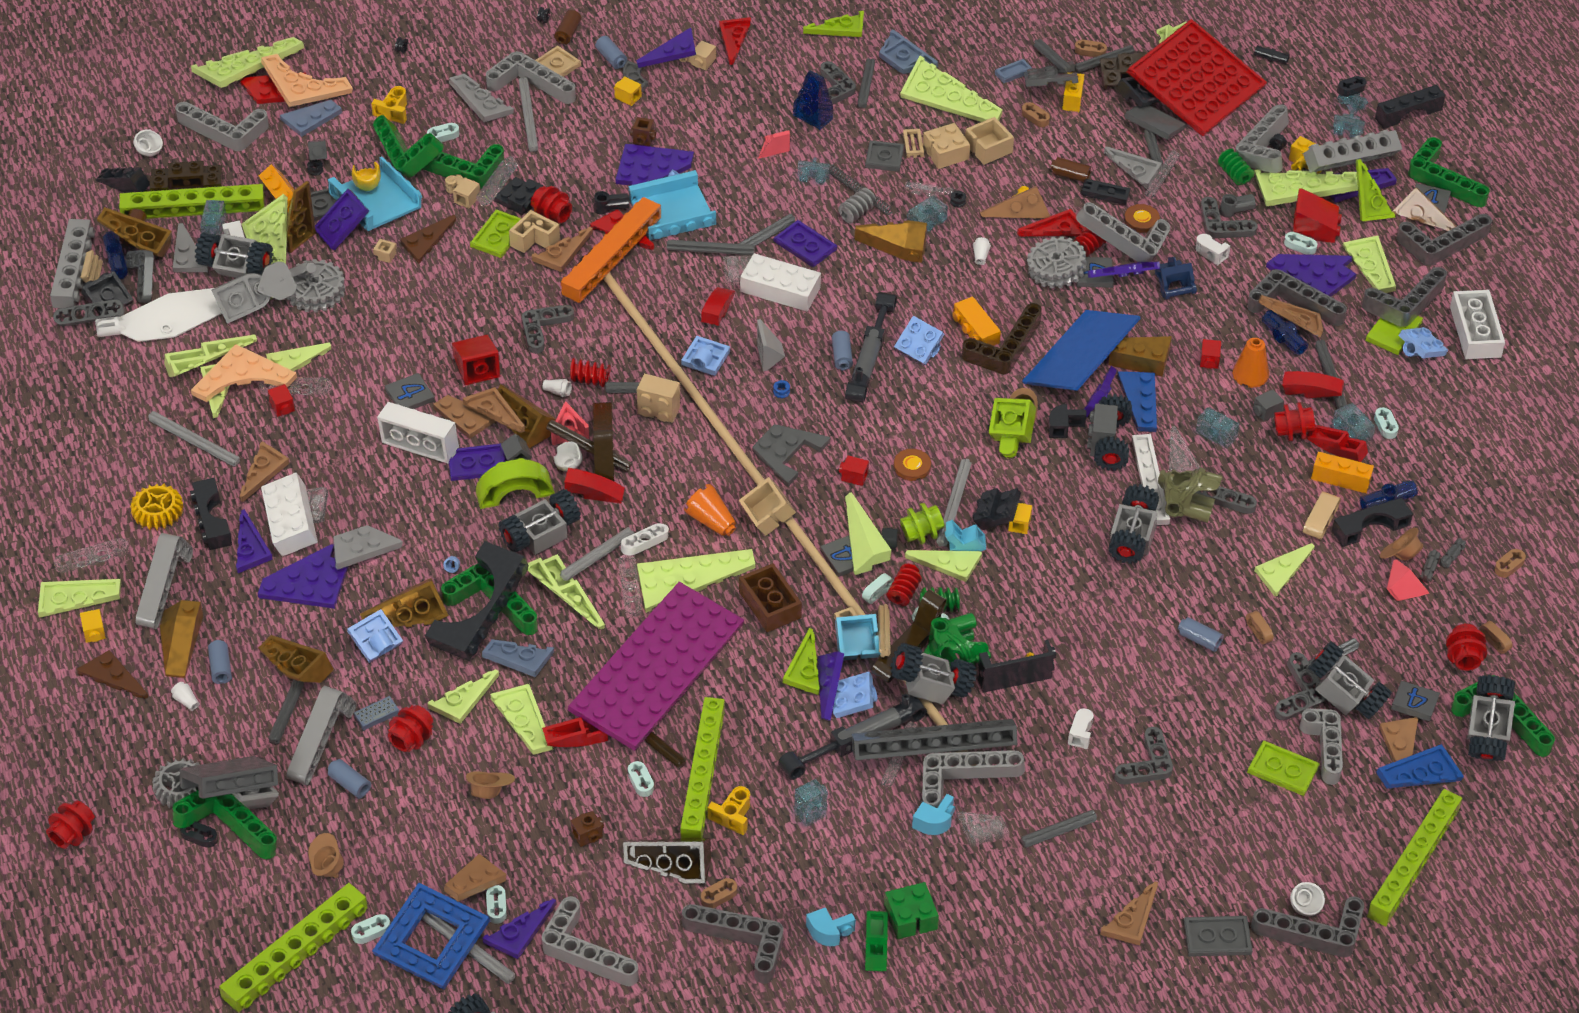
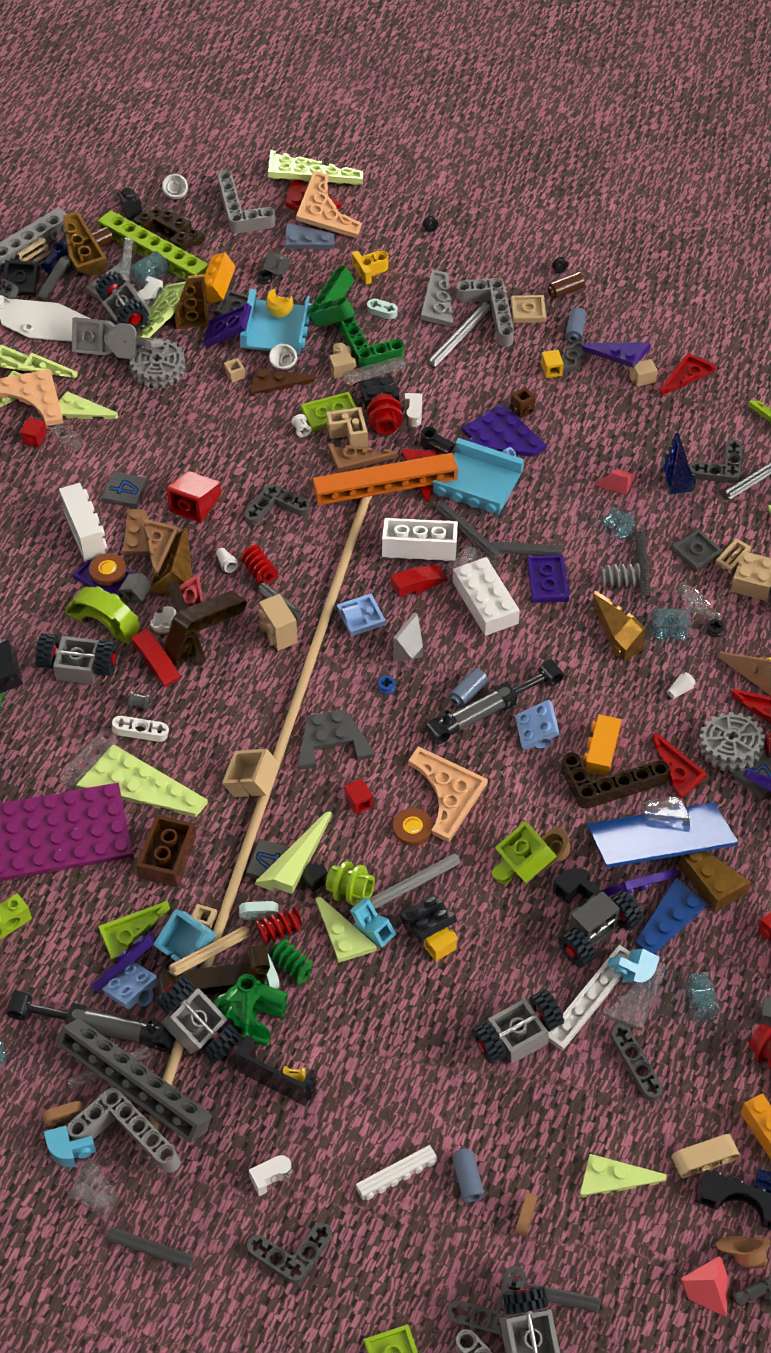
camera: 45 degrees right, 5 degrees up
(184, 222) = (126, 258): none -> clear beam
(415, 215) = (283, 357): none -> white piece
(476, 453) = (107, 569): none -> dark orange tile
(491, 256) = (301, 425): none -> white bush
(564, 185) = (413, 402): none -> white leg
(570, 591) = (42, 715): yellowish green wedge -> none
(595, 555) = (89, 713): light grey axle -> none
(619, 522) = (139, 701): none -> dark grey bush
(688, 274) = (419, 539): none -> white brick
(711, 511) = (209, 743): orange cone -> none
(907, 801) = (62, 1114): none -> medium nougat beam
(911, 419) = (455, 789): none -> light nougat plate
(1051, 303) = (683, 772): none -> red wing
(1064, 334) = (665, 810): none -> clear wing
(1155, 668) = (398, 1171): none -> white piece
(1160, 437) = (638, 968): none -> brick
(1182, 496) = (598, 1038): olive helmet -> none

